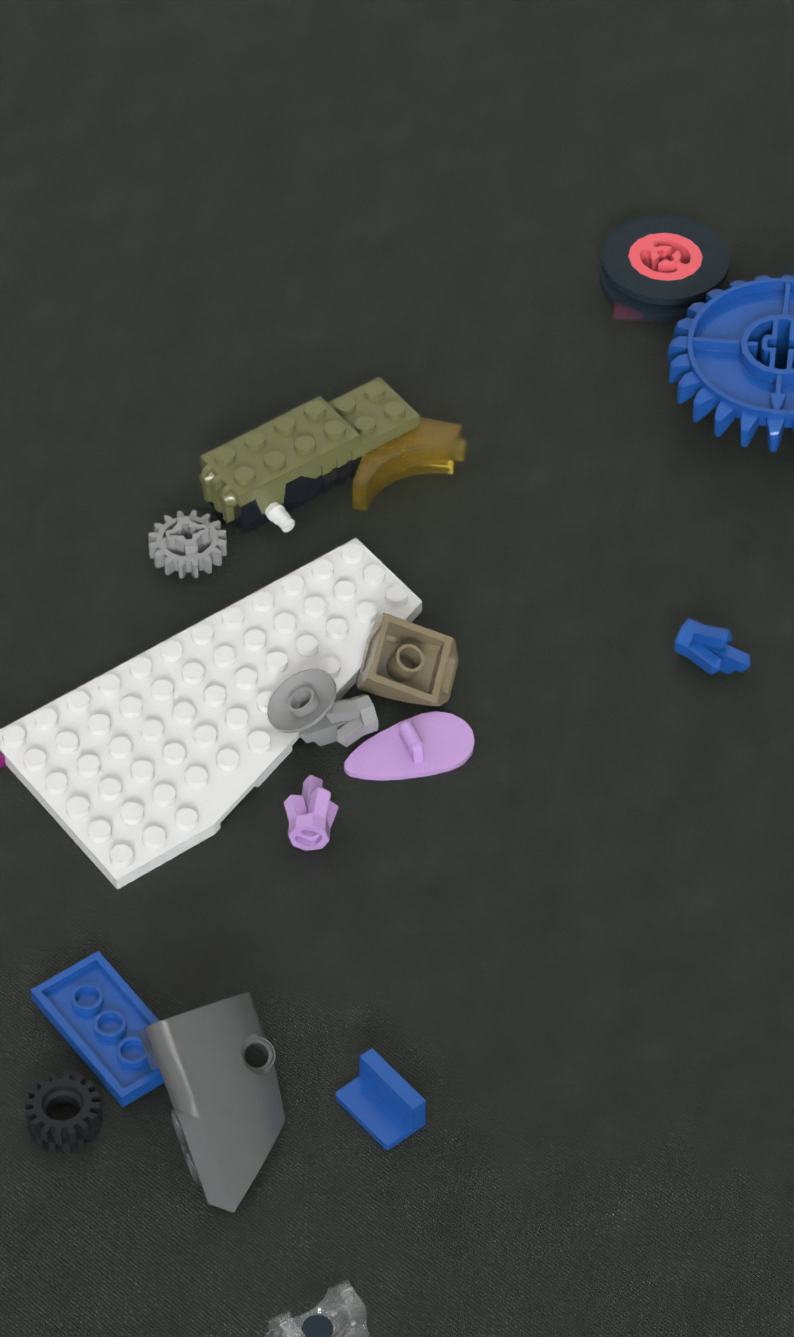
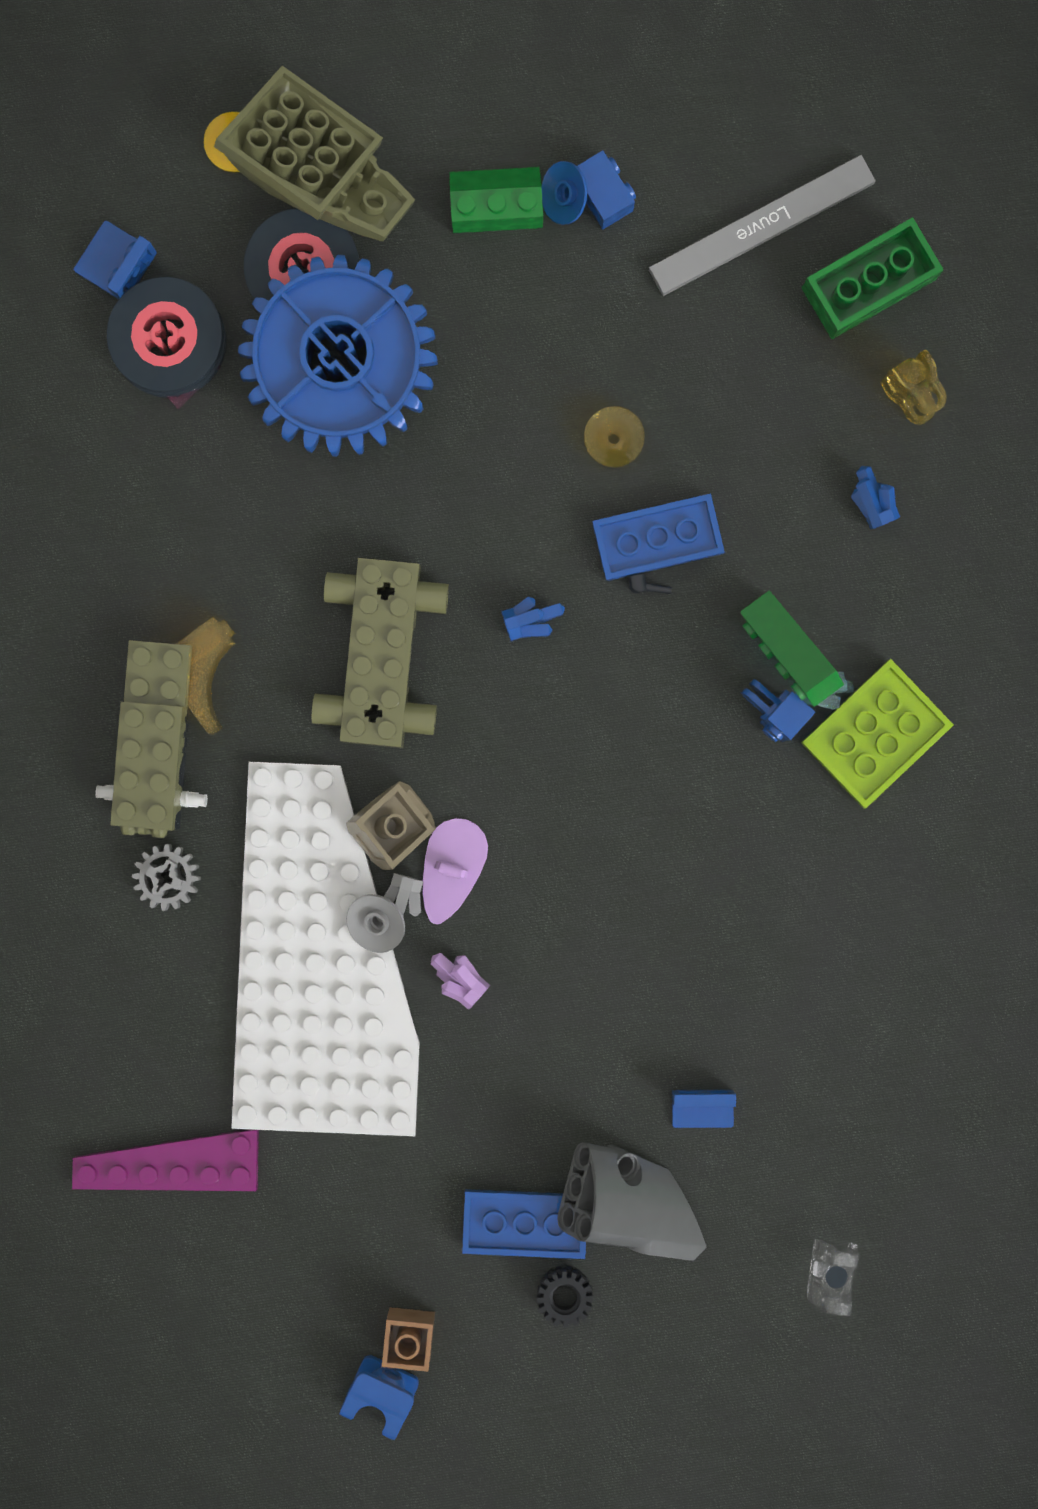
camera: 50 degrees left, 40 degrees up
(511, 582) = (380, 653): none -> olive piece
(693, 201) = (115, 260): none -> blue bracket

